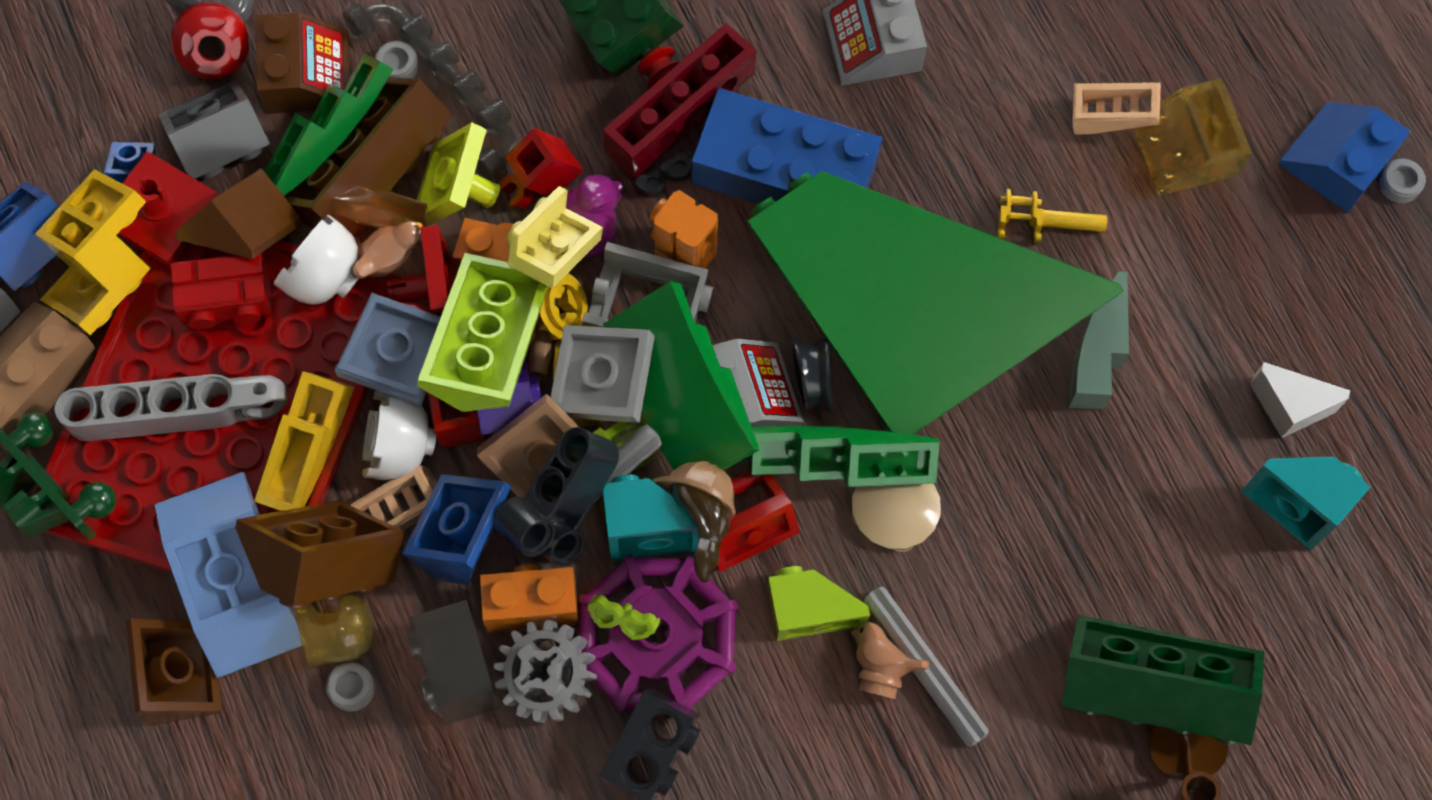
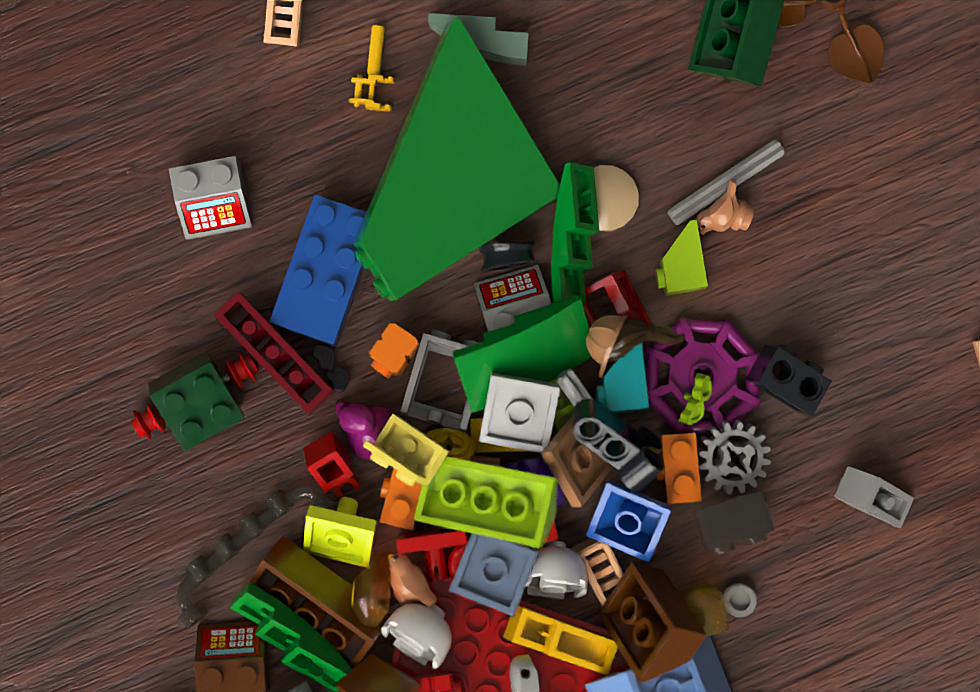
camera: 85 degrees left, 15 degrees up
(399, 57) = (227, 583): light grey tile -> none

